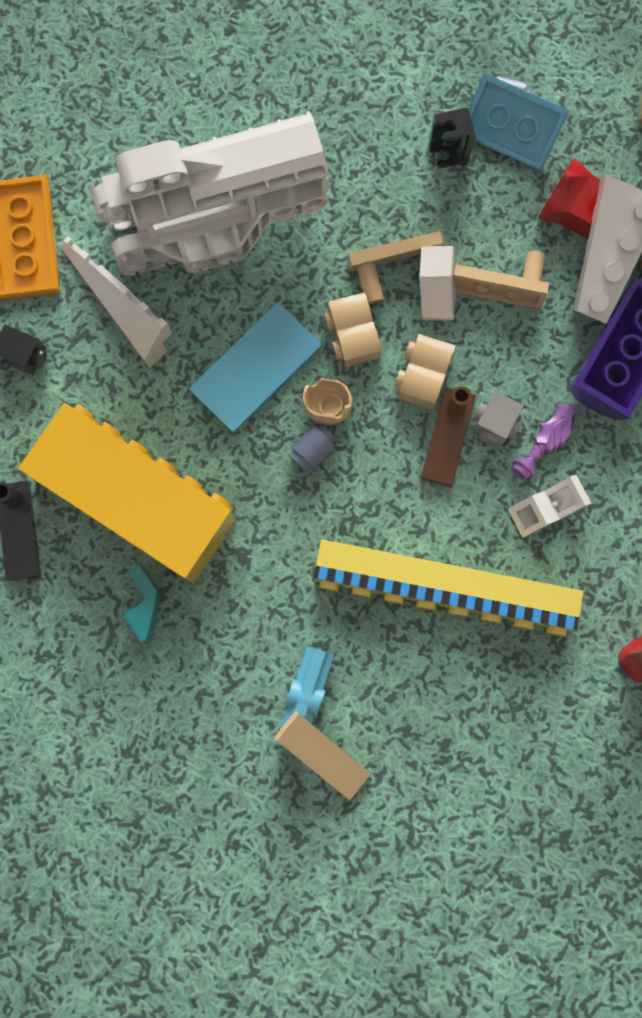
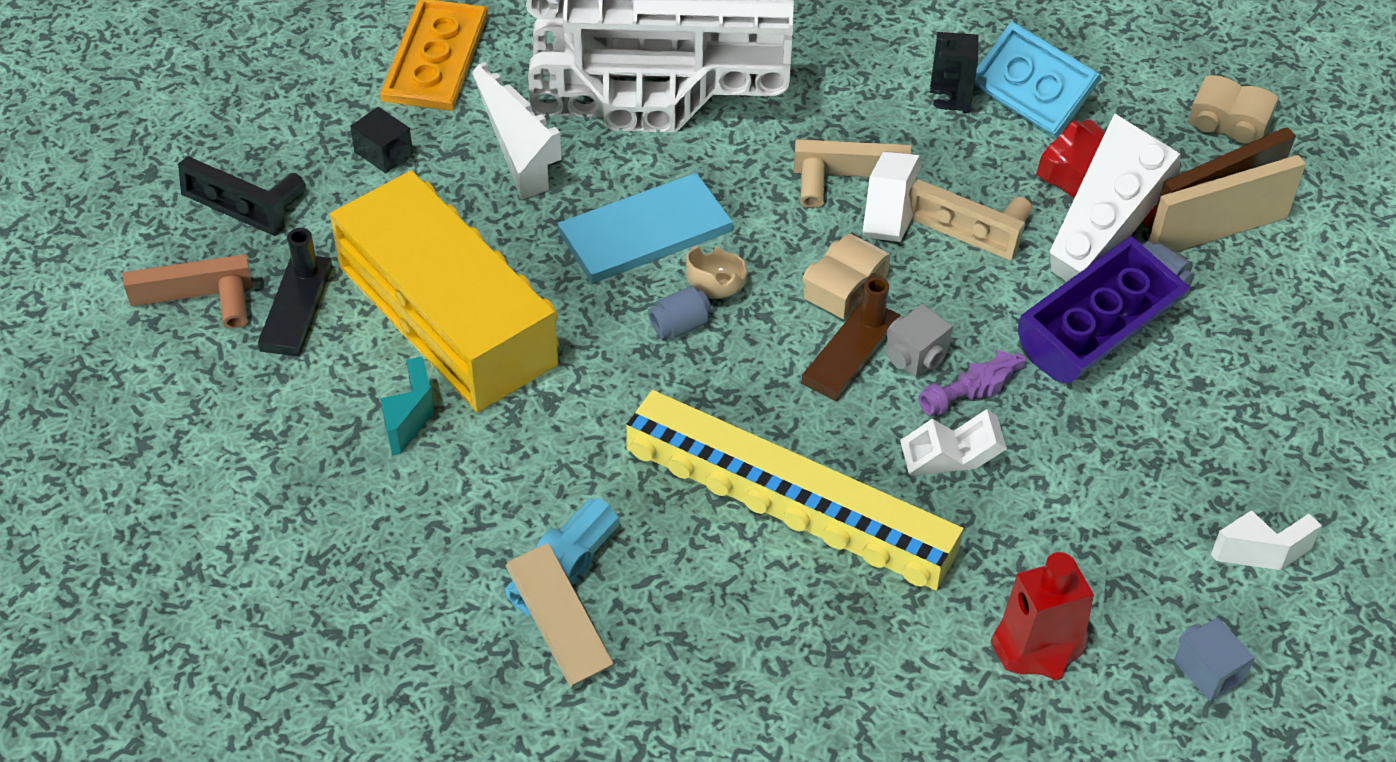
camera: 15 degrees right, 30 degrees down
(353, 330) = (775, 217): tan brick -> none

